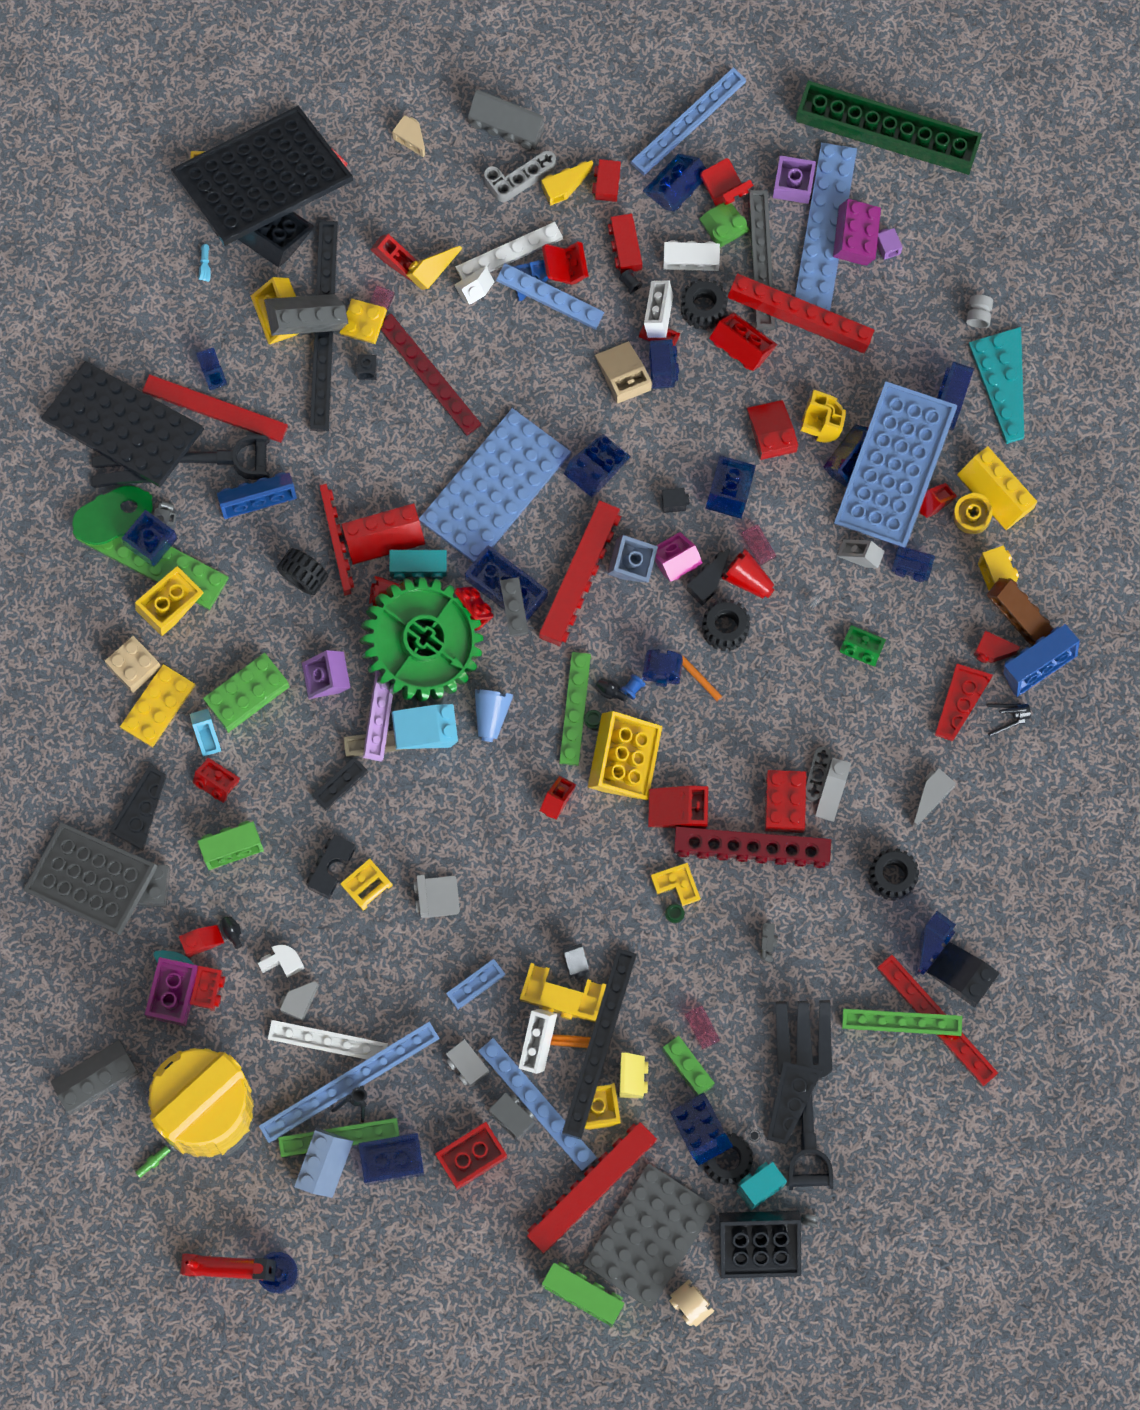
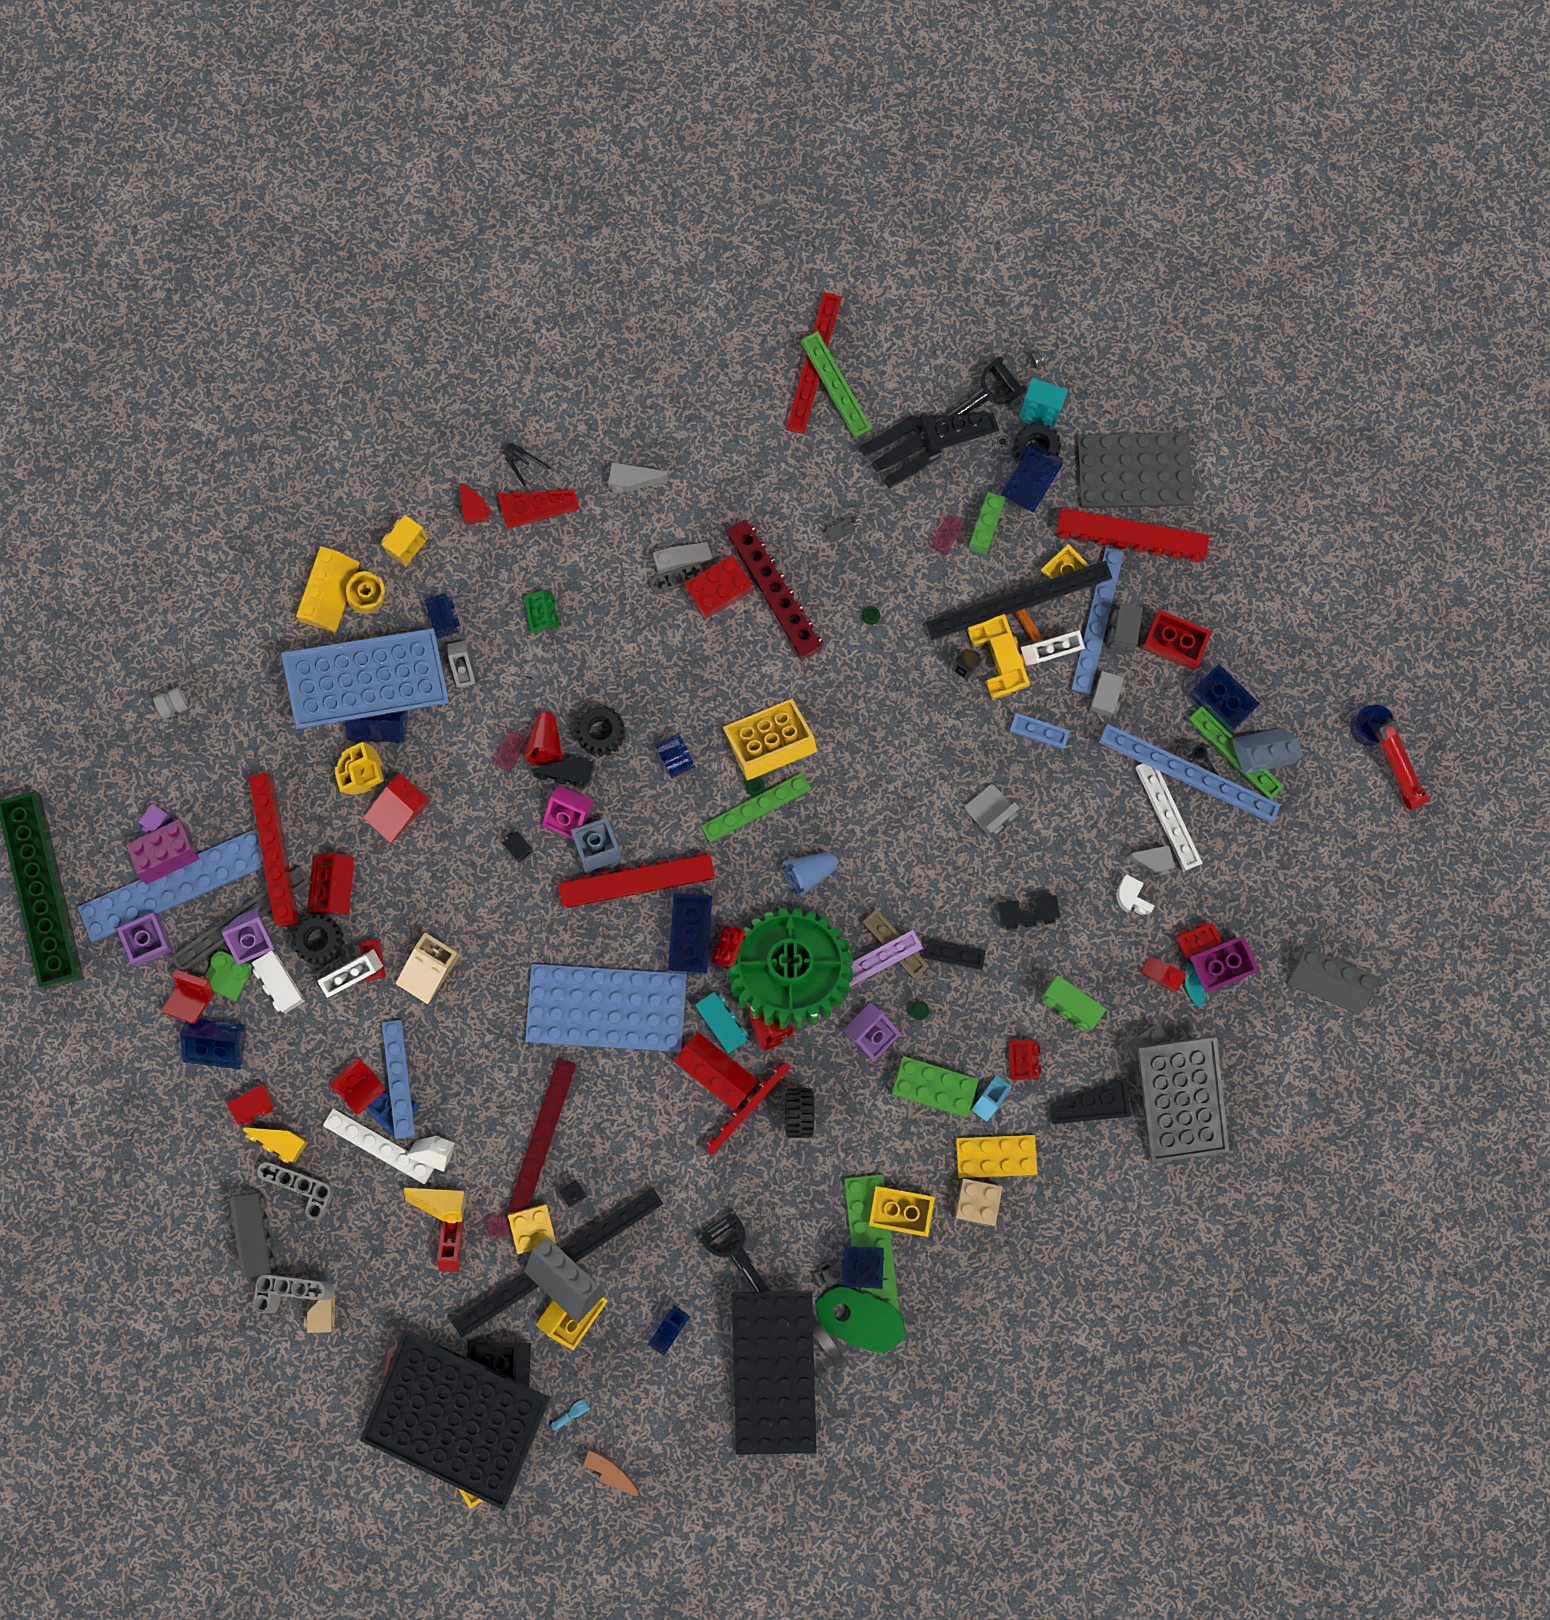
camera: 125 degrees left, 5 degrees up
(140, 263) = (611, 1473): none -> nougat slope
(152, 1161) = (1360, 886): bright green bar -> none
(202, 1103) = (1303, 863): yellow piece -> none
(215, 408) = (700, 1304): red tile -> none
(231, 930) = (1137, 956): black piece -> none
(256, 495) = (756, 1206): blue slope -> none
(316, 725) = (919, 1010): none -> dark green plate
(363, 878) = (1021, 880): yellow plate -> none
(425, 727) = (861, 915): medium azure slope -> none
(453, 116) = (295, 1289): none -> light grey beam
(514, 607) = (709, 909): dark grey plate -> none
(557, 797) = (842, 769): red slope -> none
(583, 1294) = (1218, 485): bright green brick -> none
(596, 465) = (529, 933): clear blue slope -> none
(610, 689) = (720, 789): black piece -> none
(625, 243) = (303, 1047): red brick -> none
(630, 281) = (337, 1019): black bush -> none
(632, 1076) = (1026, 560): light yellow slope -> none
(633, 686) = (705, 772): blue bush -> none
(663, 363) = (399, 935): clear blue brick -> none
(678, 807) = (783, 666): red slope -> none
(679, 879) = (841, 631): yellow plate -> none
(688, 121) = (145, 1072): medium blue plate -> none
(691, 1303) = (1165, 402): tan brick -> none
(699, 677) = (659, 724): orange bar -> none
(730, 487) = (473, 807): clear blue slope -> none
(741, 252) = (248, 936): none -> medium lavender slope
(760, 1244) = (1088, 384): black slope -> none
(888, 889) = (720, 480): black tyre -> none
(936, 499) = (369, 629): red slope -> none
(936, 932) = (757, 400): clear blue slope -> none
(955, 387) = (260, 676): clear blue brick -> none
(963, 973) = (763, 365): black slope -> none
(1001, 372) = (215, 653): teal wing -> none
(1019, 610) = (430, 498): reddish brown brick -> none
(1041, 659) = (459, 459): blue slope -> none

